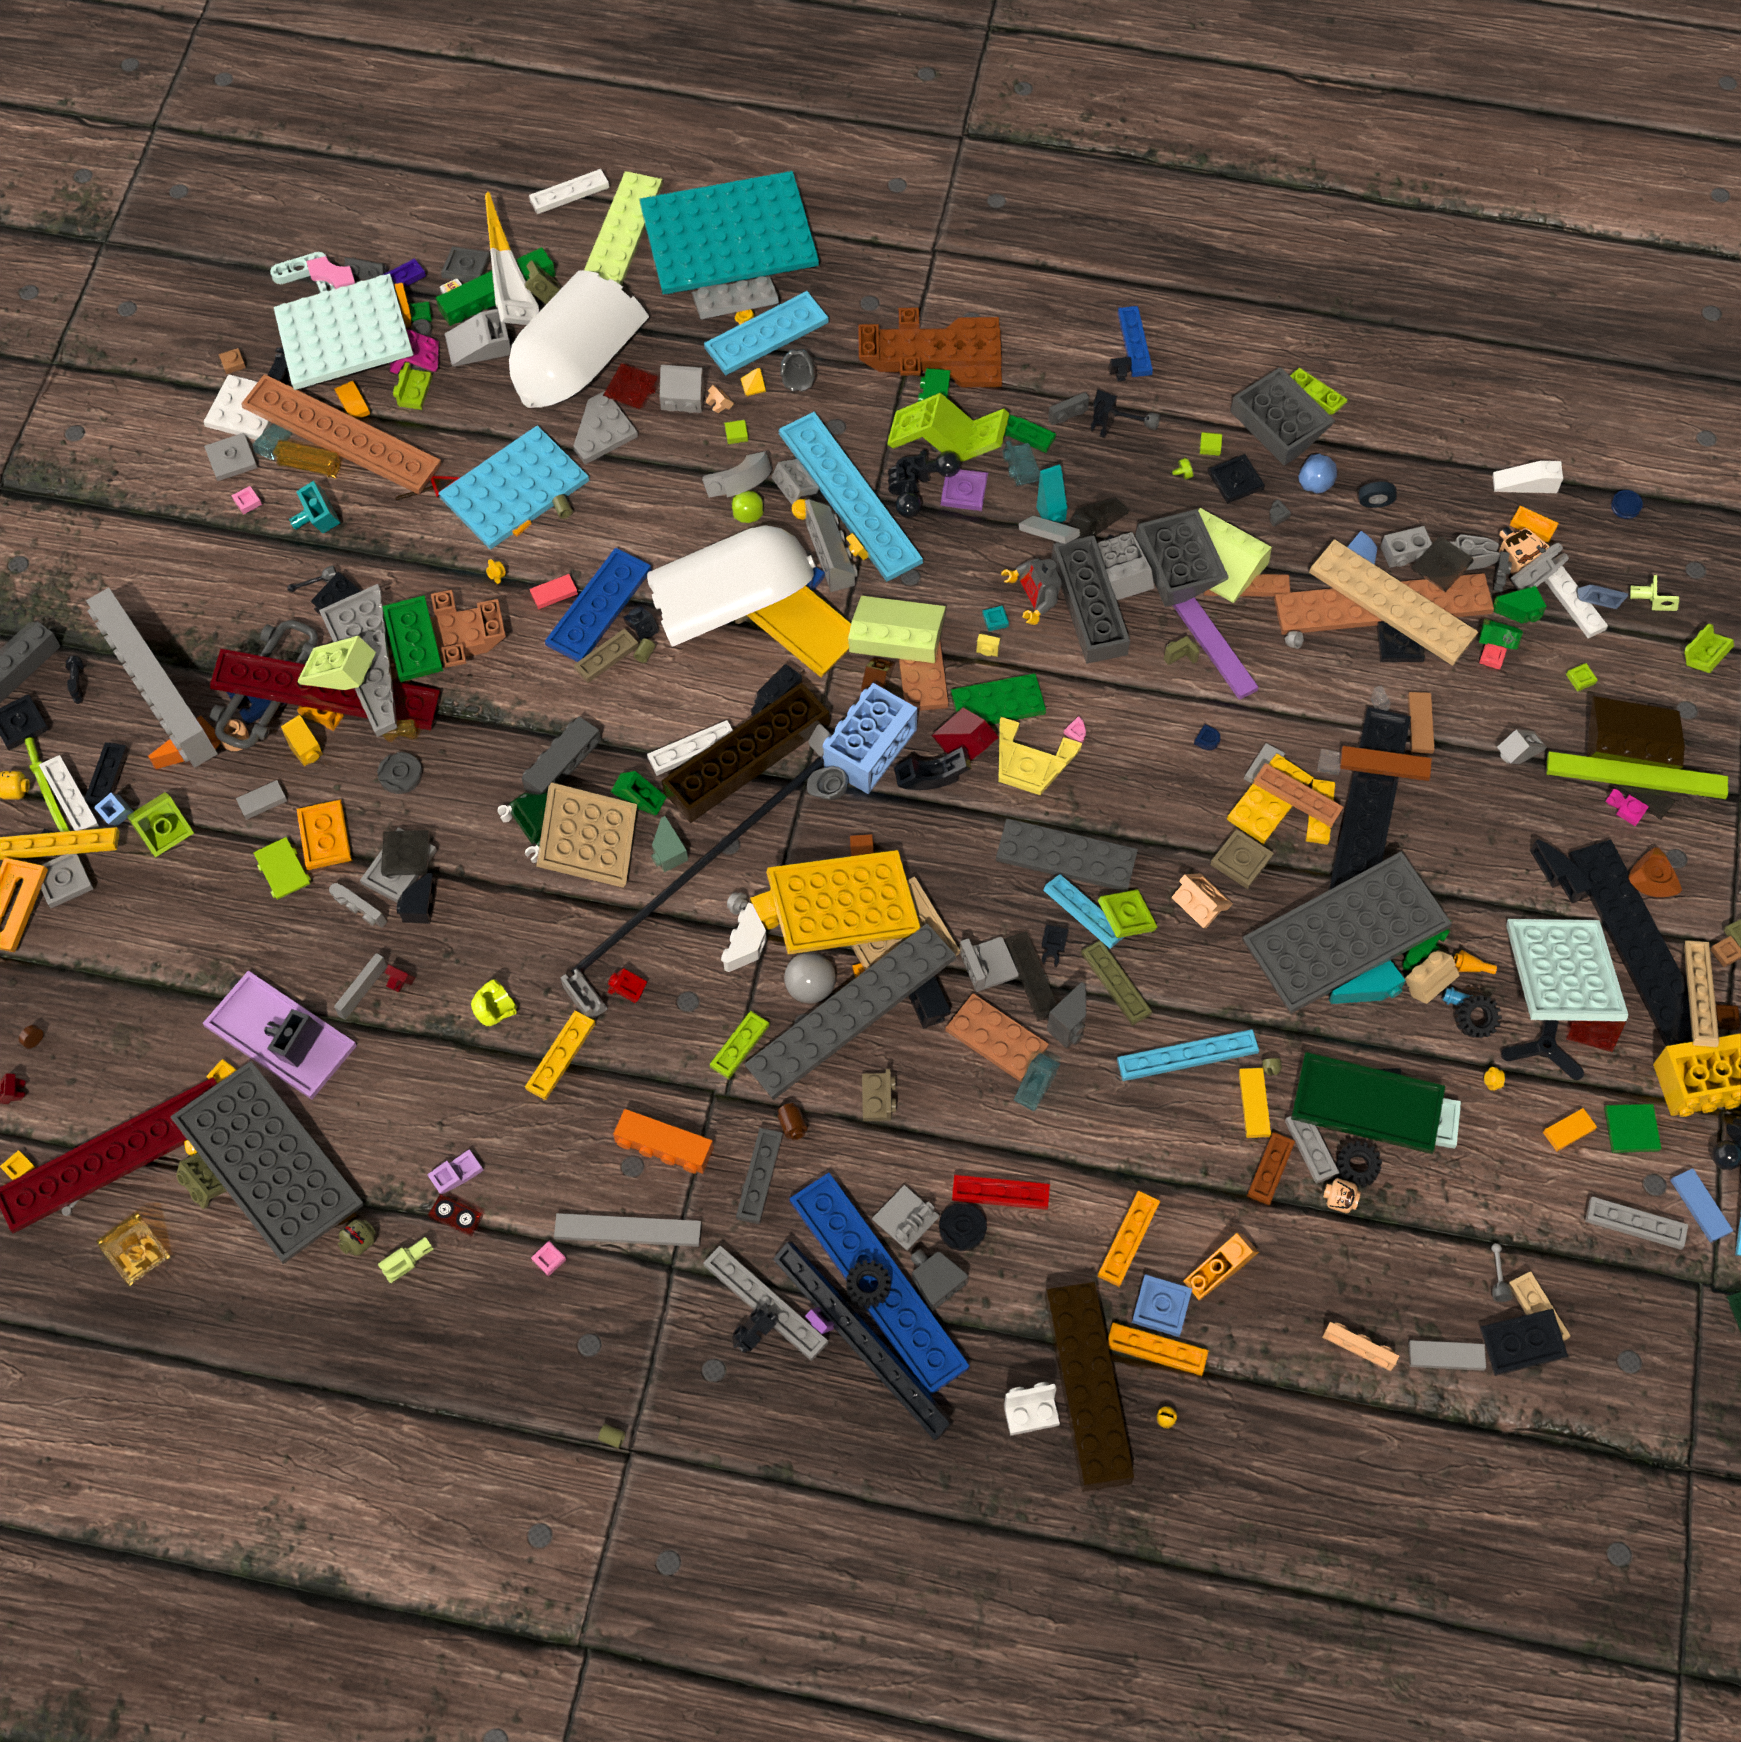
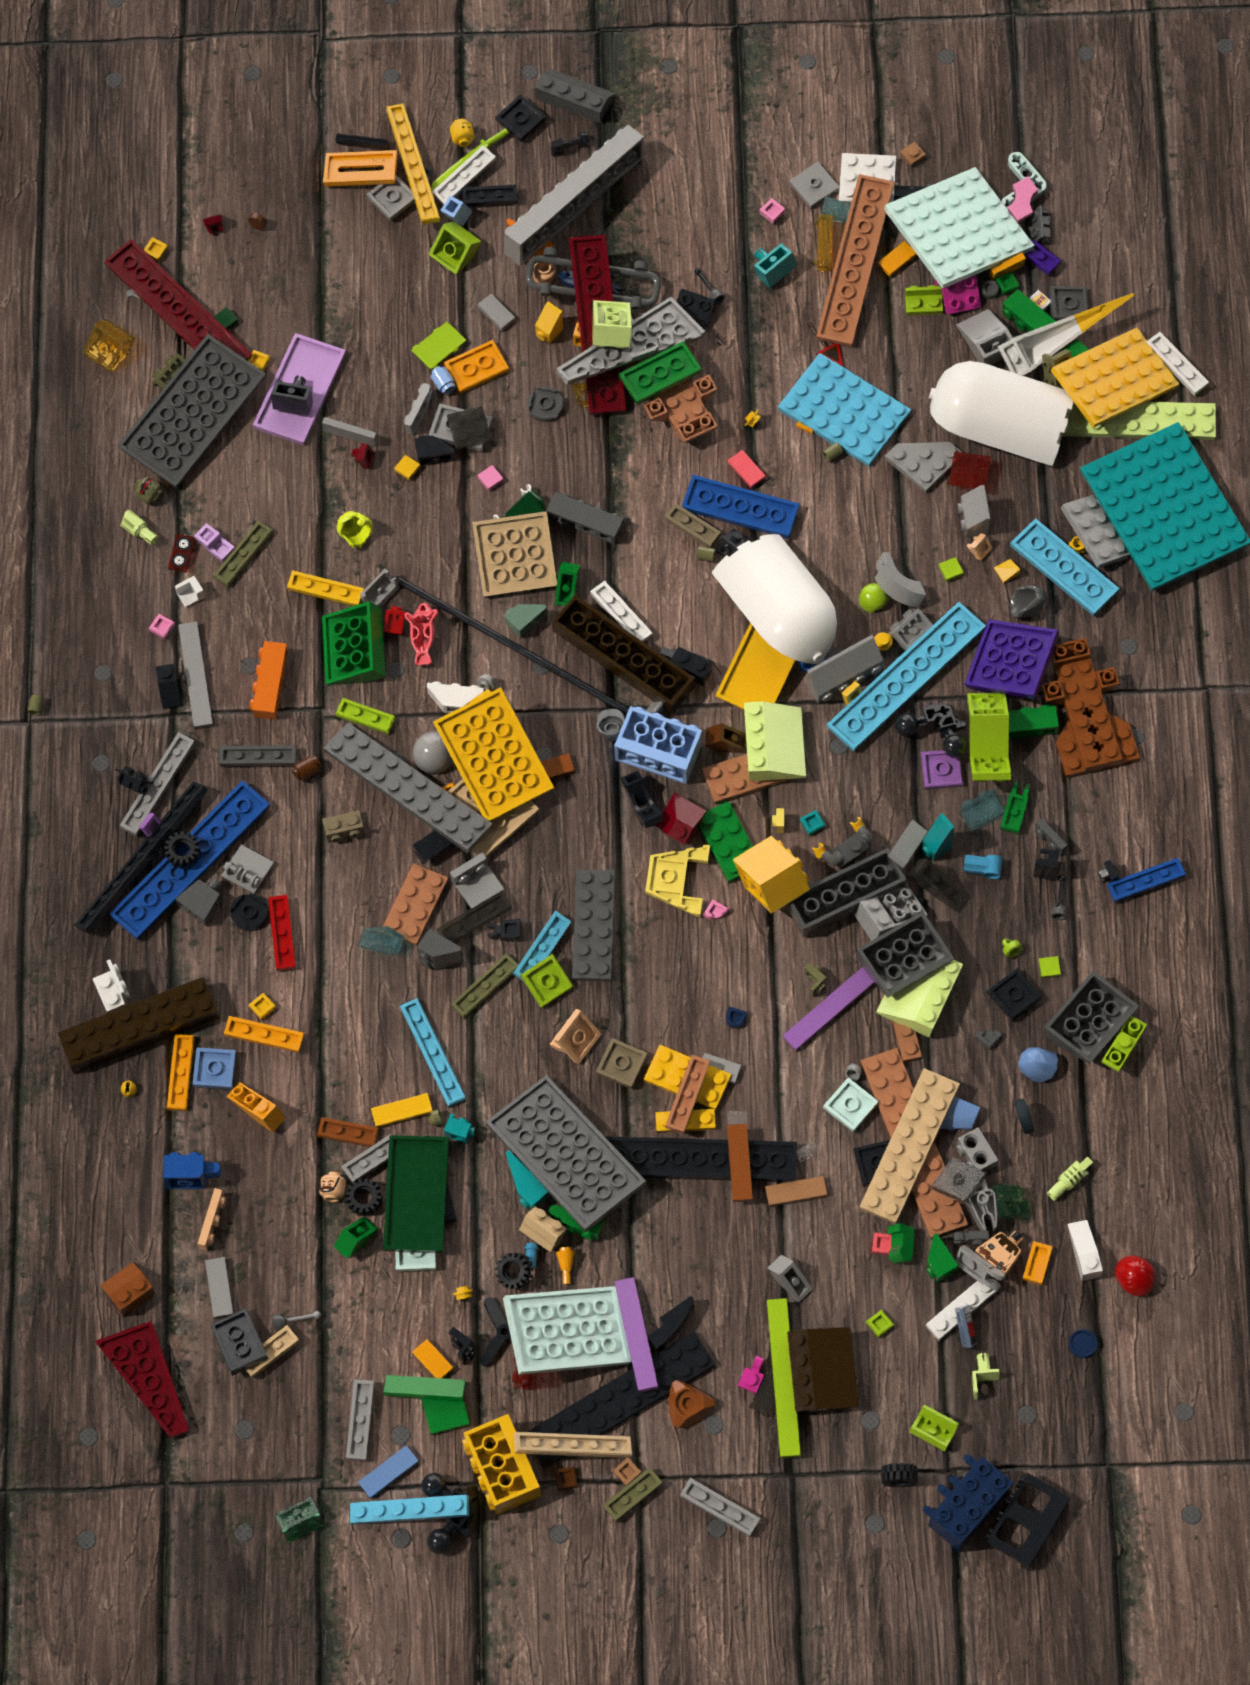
camera: 80 degrees right, 5 degrees up
(149, 1099) = (226, 318): none -> dark green tile
(329, 871) = (443, 380): none -> light blue brick
(429, 934) = (407, 467): none -> yellow tile
(474, 848) = (490, 478): none -> bright pink tile
(480, 1143) = (243, 554): none -> olive tile
(514, 1213) = (189, 591): none -> white panel
(570, 237) = (1114, 377): none -> yellow plate
(636, 1263) = (168, 686): none -> black slope
(645, 1038) = (353, 645): none -> green slope
(653, 955) = (422, 632): none -> coral animal
(862, 393) = (1012, 658): none -> dark purple plate
(1060, 655) = (772, 874): none -> yellow container
(1087, 470) = (988, 866): none -> dark azure piece
(1089, 1235) = (262, 1006): none -> yellow tile
(1291, 1043) = (459, 1129): none -> teal brick
(1299, 1358) = (188, 1171): none -> blue hinge
(1332, 649) = (850, 1104): none -> light aqua plate
(1409, 1183) = (355, 1237): none -> green slope
(1435, 1465) = (128, 1289): none -> dark orange slope
(1447, 474) = (1070, 1178): none -> yellowish green hinge
(1475, 525) = (1014, 1207): none -> clear green plate
(1537, 1466) = (143, 1366): none -> dark red wing
(1561, 442) = (1135, 1275): none -> red piece
(1570, 1084) = (463, 1345): none -> black bracket
(1571, 907) = (636, 1335): none -> medium lavender tile
(1606, 1142) = (424, 1387): none -> tile

